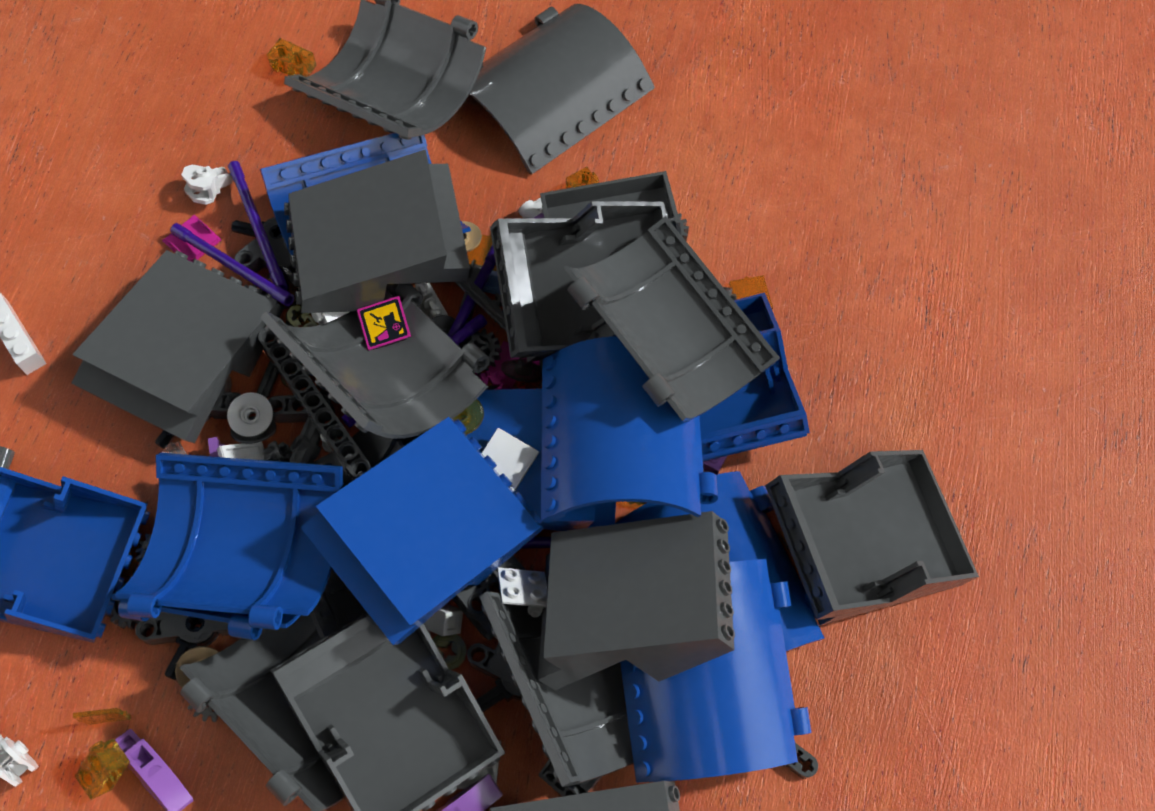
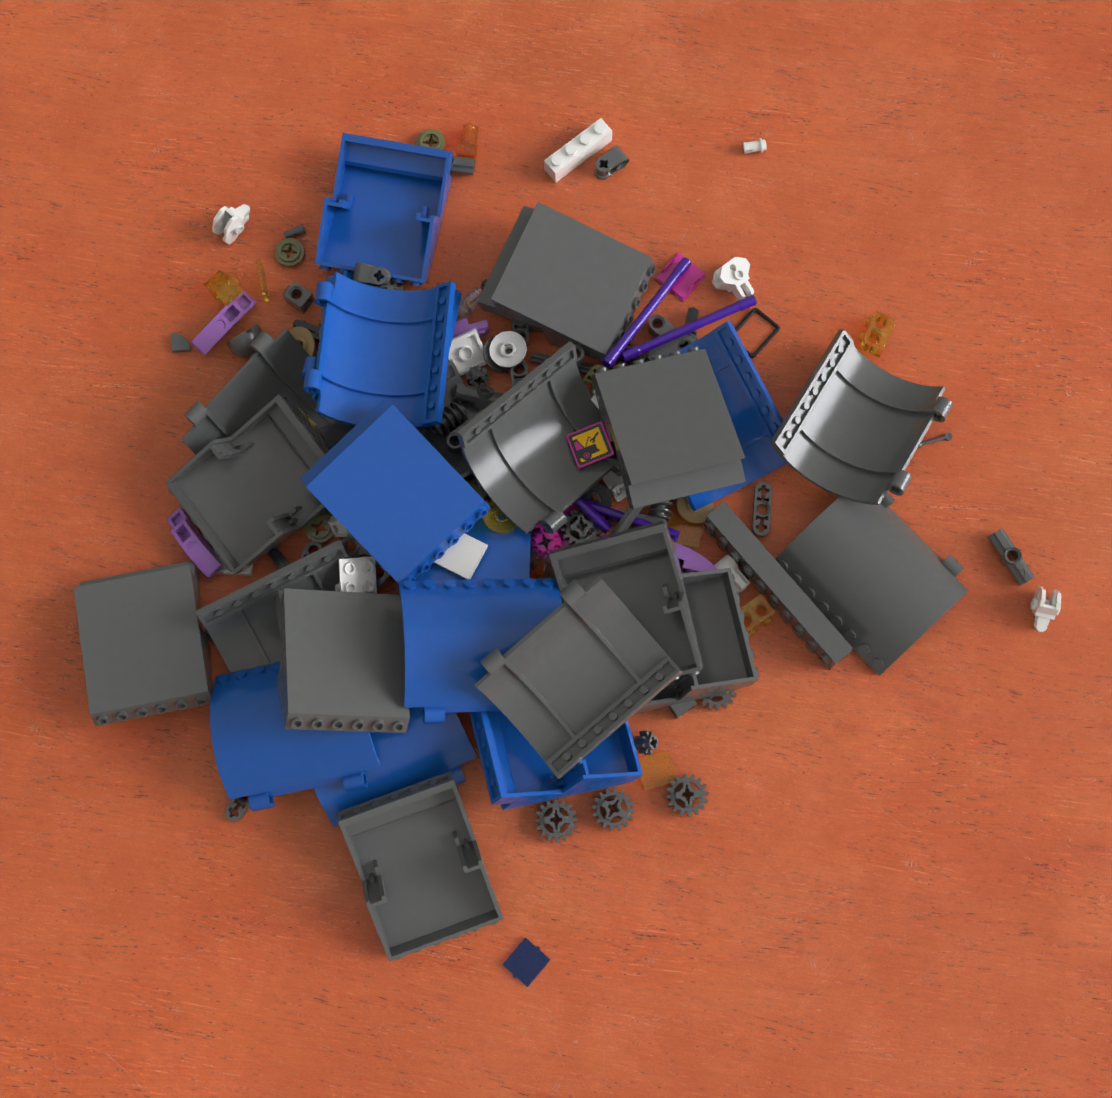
camera: 90 degrees right, 10 degrees up
(37, 300) = (612, 161): none -> dark grey piece
(40, 673) = (299, 230): none -> dark grey piece
(52, 156) = (754, 146): none -> white pin
(63, 674) = (284, 246): none -> olive gear
(123, 567) = (368, 274): none -> dark grey piece
(144, 671) = (303, 302): none -> dark grey brick
(185, 738) = (241, 344): none -> dark grey cylinder
(268, 151) = (768, 339): none -> black piece
(476, 184) = (766, 523): none -> dark grey beam
(554, 162) = (777, 586): none -> dark grey brick
(778, 264) = (695, 795): none -> dark grey gear
(804, 341) = (605, 804): none -> dark grey gear
(816, 388) = (547, 820): none -> dark grey gear
(964, 434) = (526, 962): none -> clear blue piece

